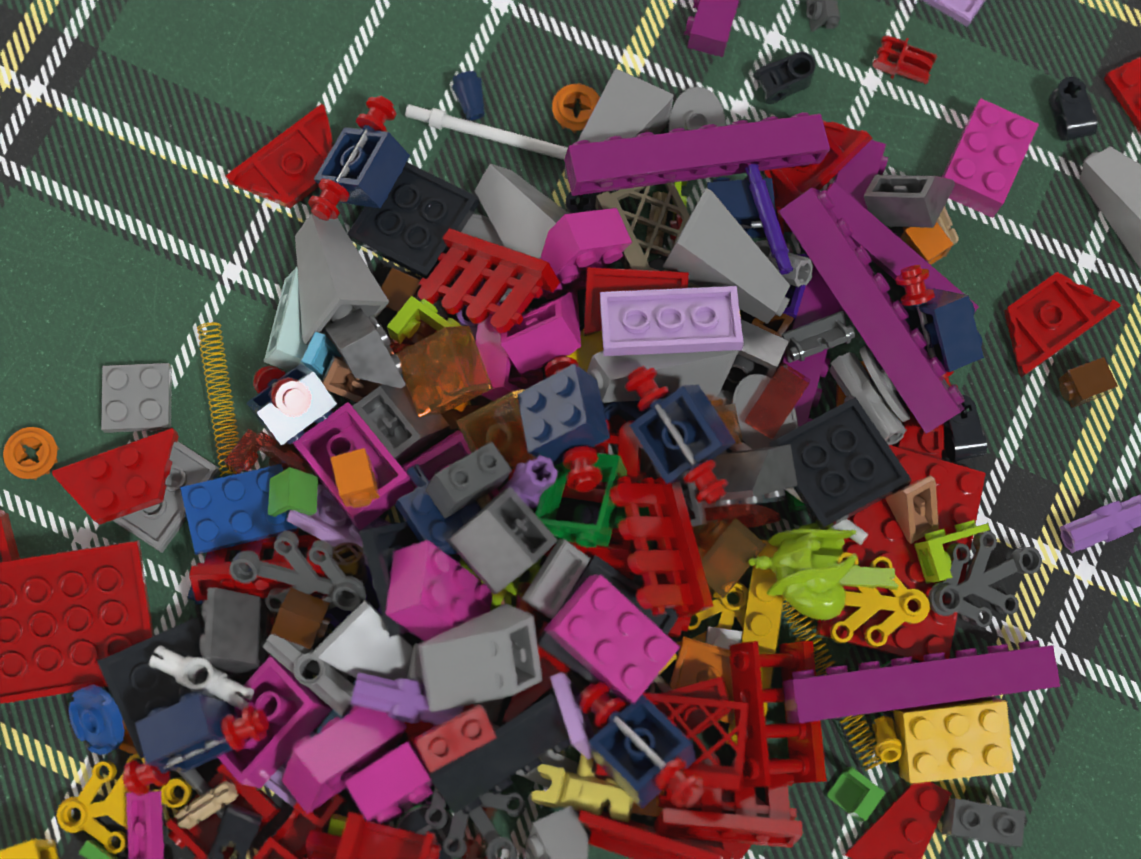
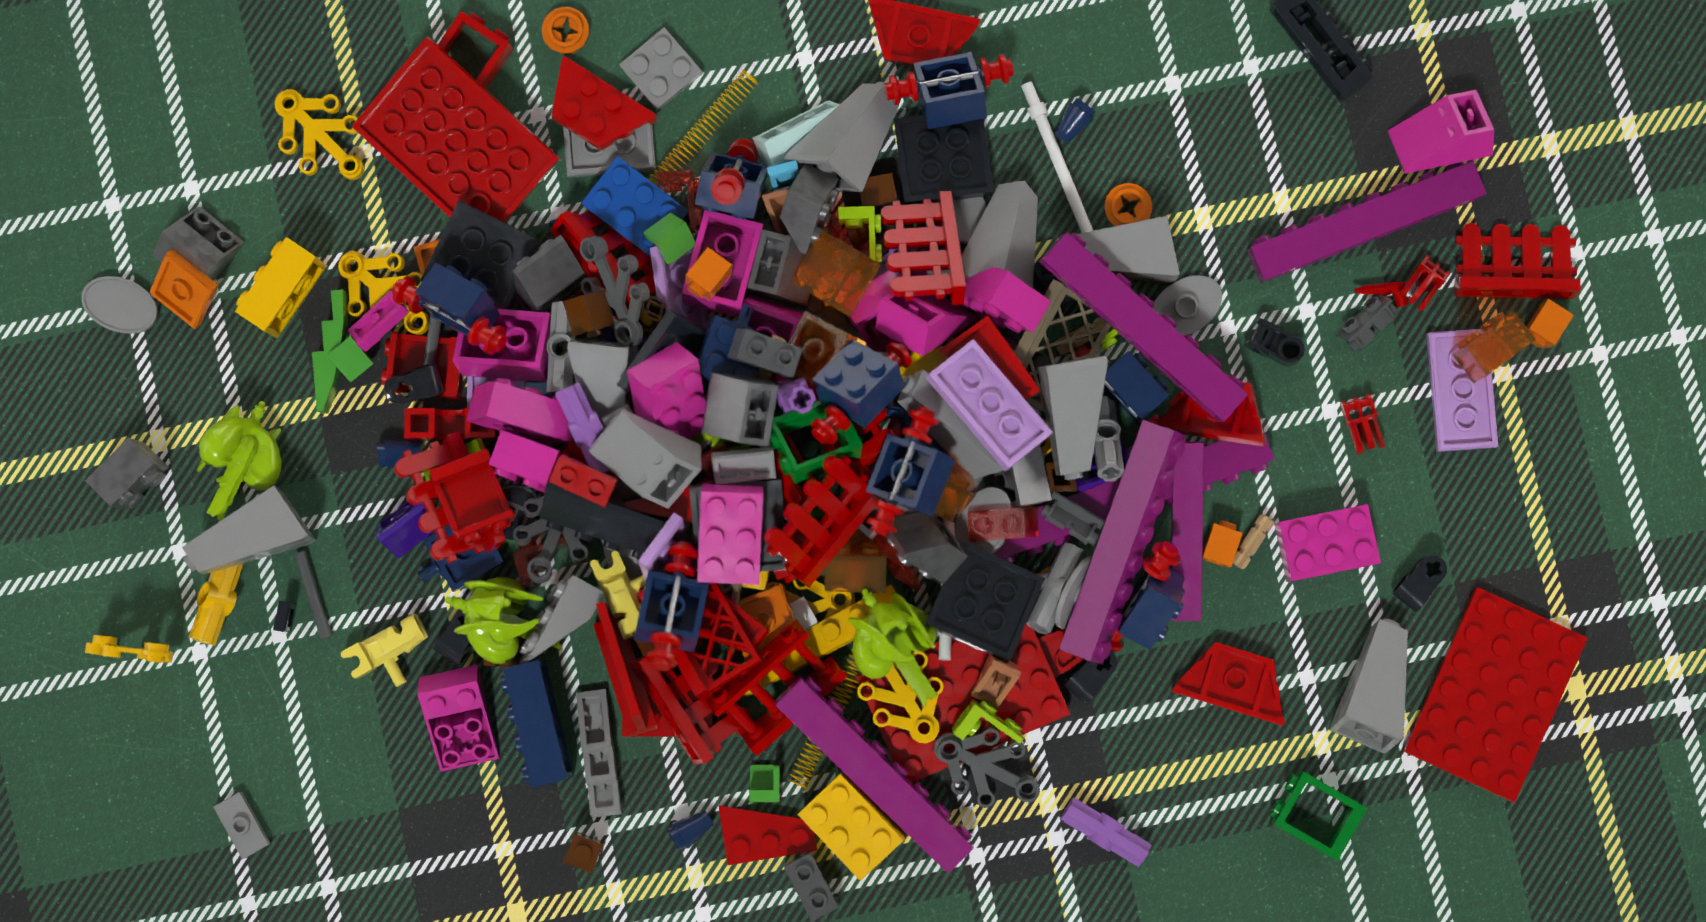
camera: 65 degrees right, 10 degrees up
(96, 719) = (422, 229): blue tile -> none
(188, 668) = (495, 265): white pin -> none
(206, 805) = (423, 349): tan axle -> none
(768, 219) = (1131, 417): dark purple piece -> none
(887, 746) = (813, 781): yellow pin -> none
(908, 199) = (1239, 507): flat silver slope -> none
(1087, 382) = (1200, 741): reddish brown brick -> none

